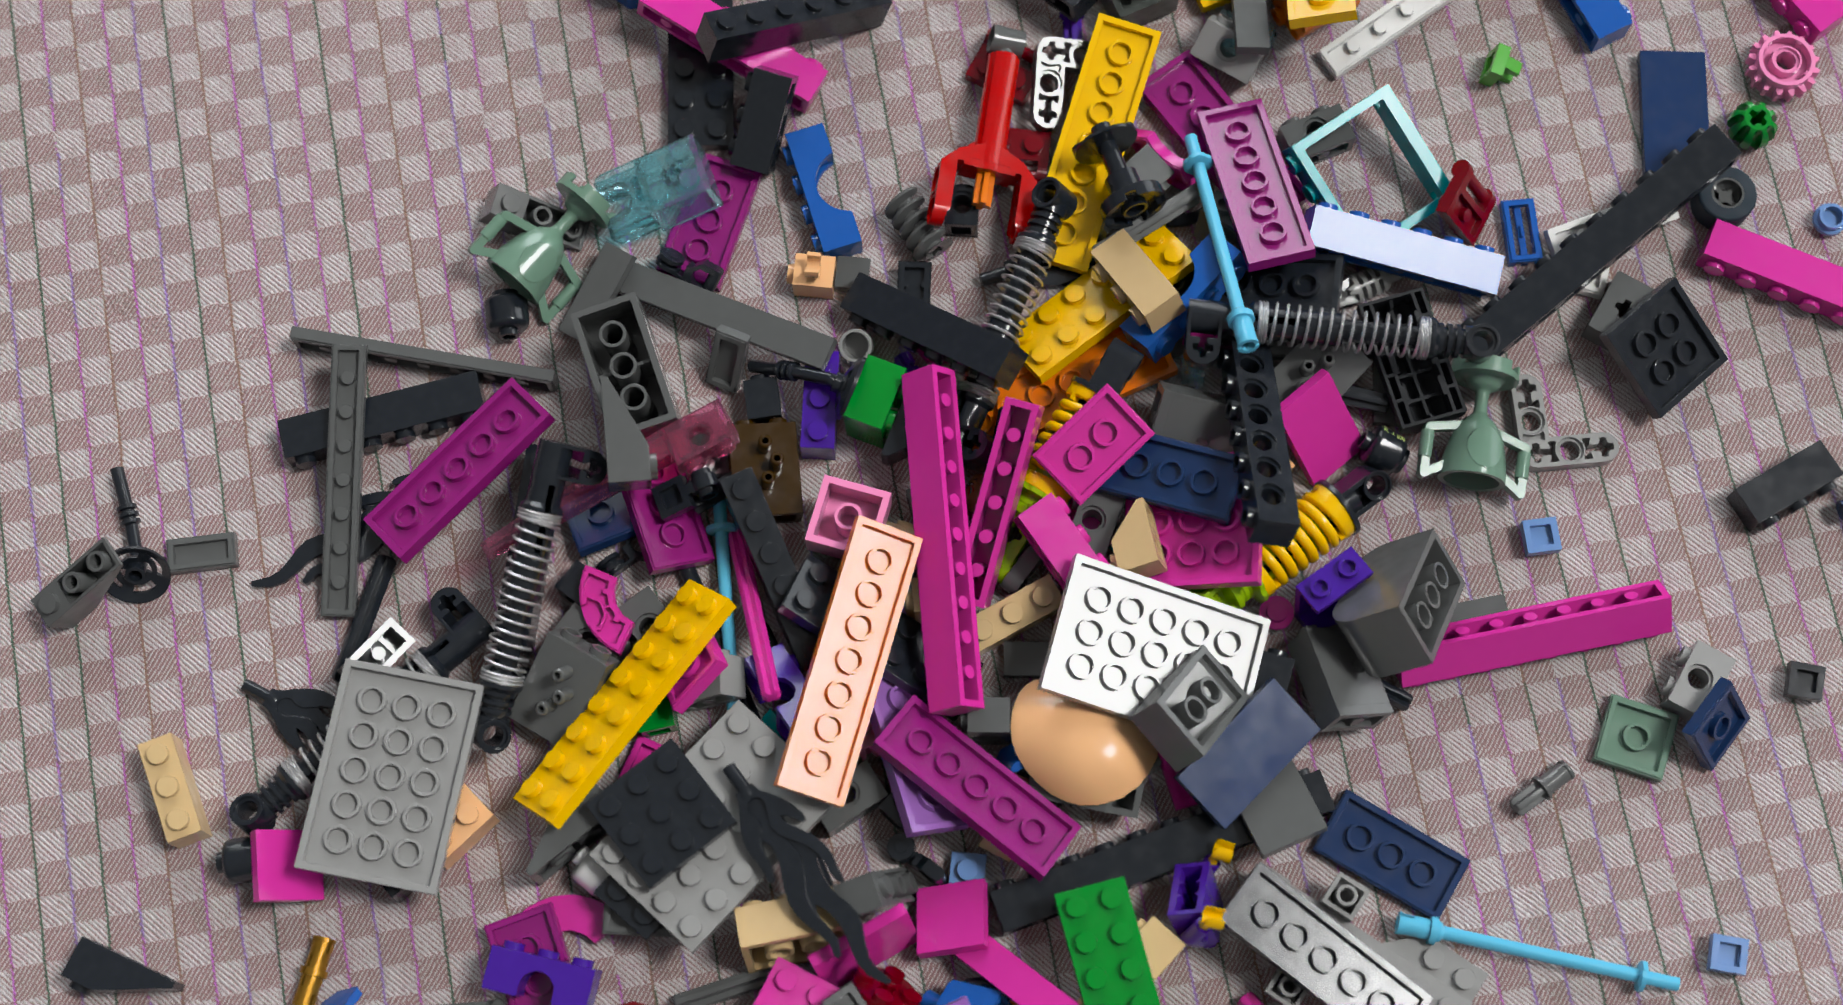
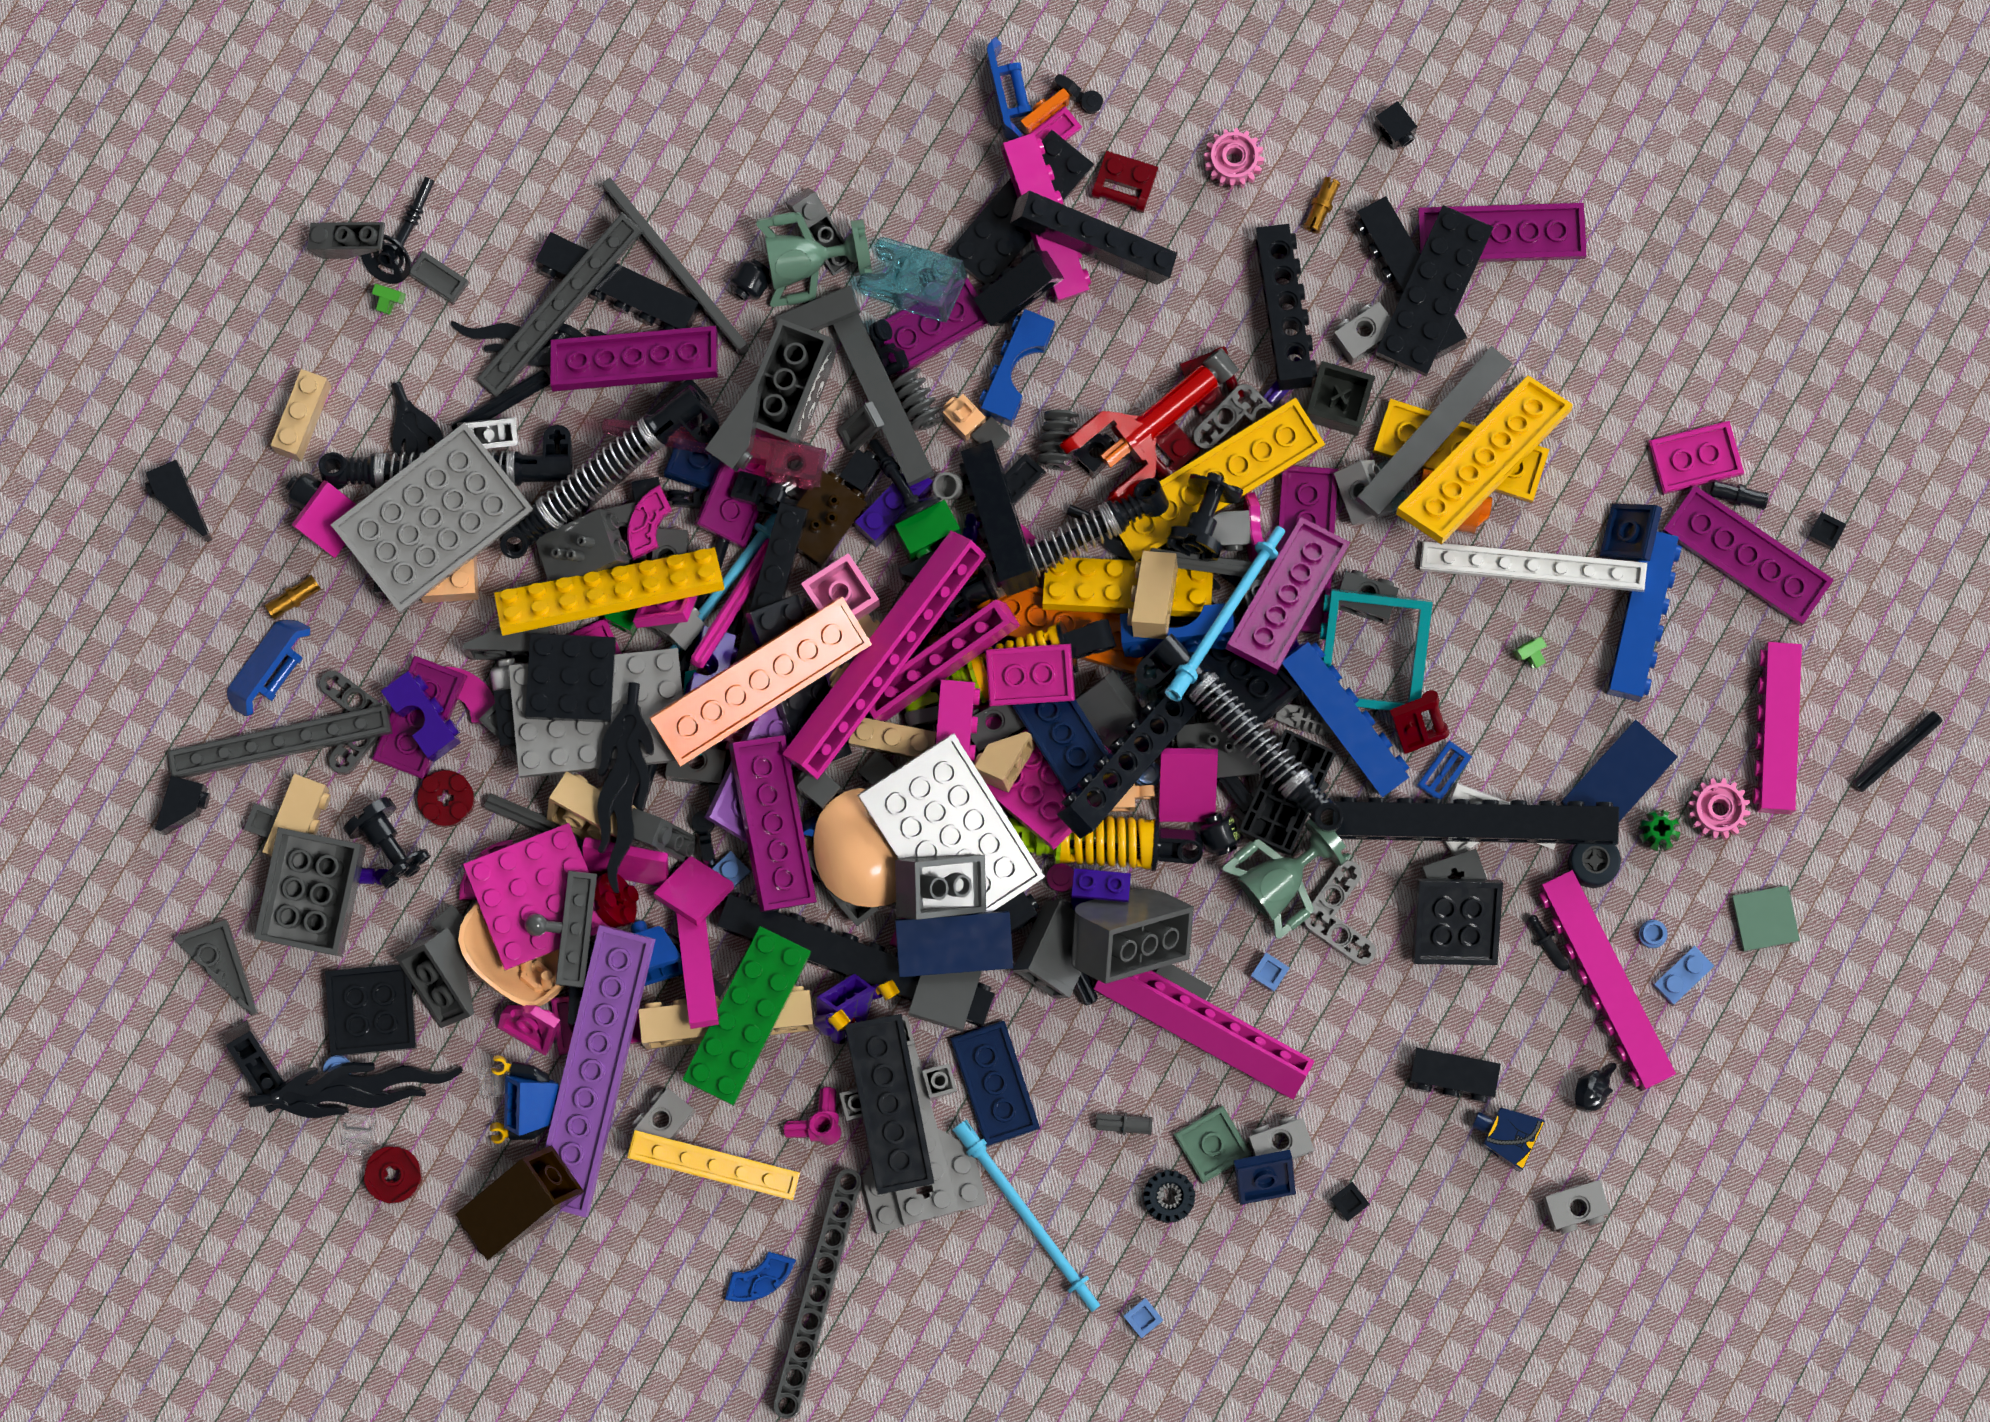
camera: 40 degrees right, 5 degrees up
(168, 610) = (387, 298): none -> bright green tile
(756, 295) = (915, 402): none -> dark grey piece
(1657, 809) = (1183, 1200): none -> black bush
(1746, 302) = (1548, 943): none -> black piece

